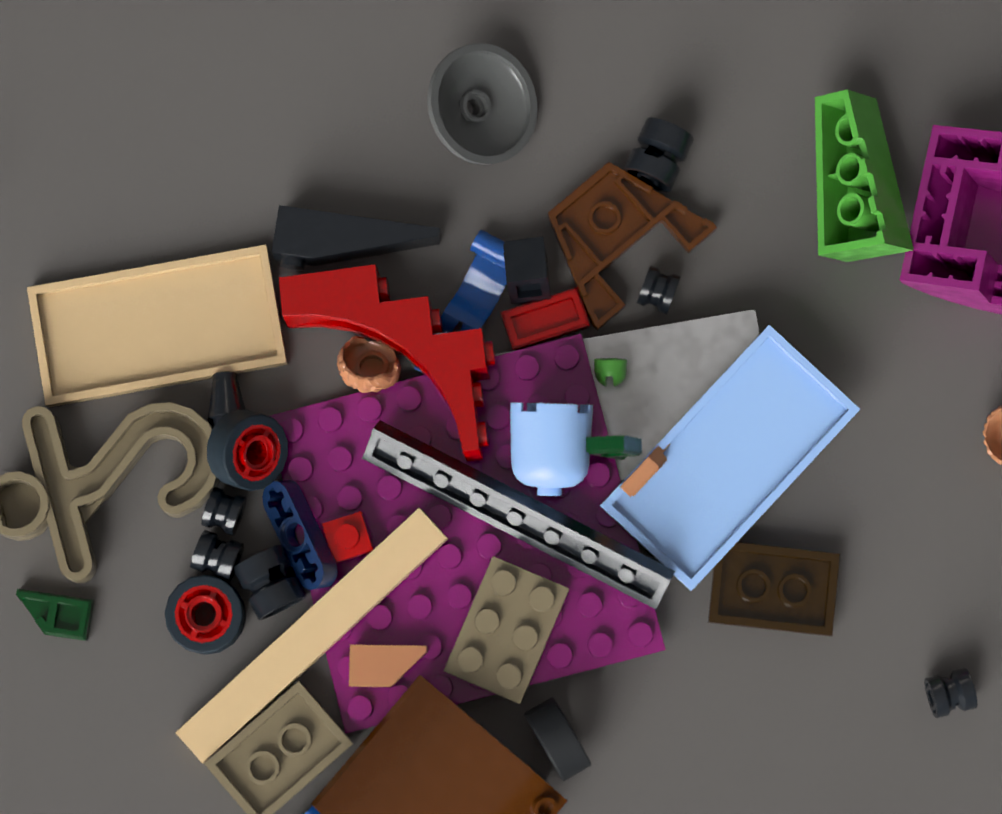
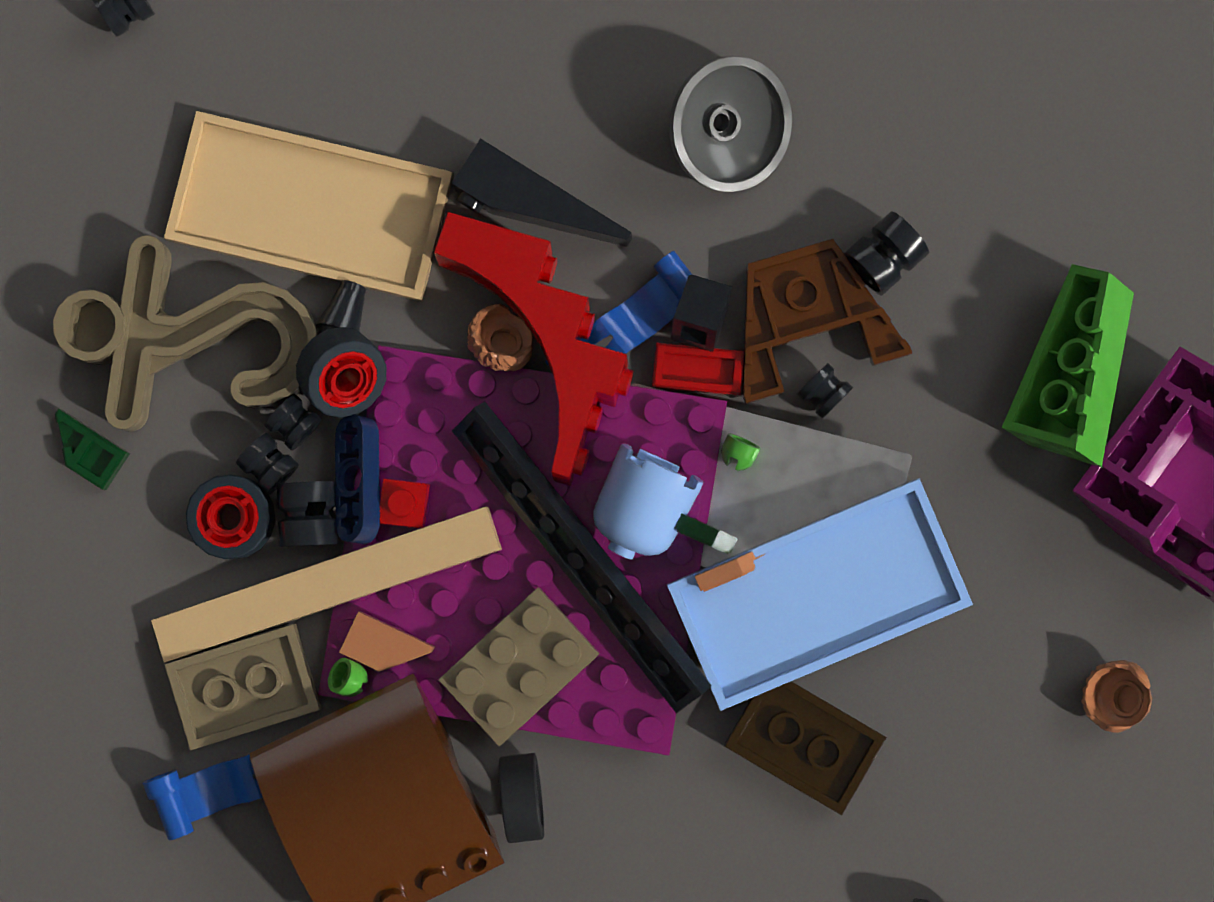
camera: 30 degrees right, 5 degrees up
(365, 712) = (347, 677): none -> bright green hinge

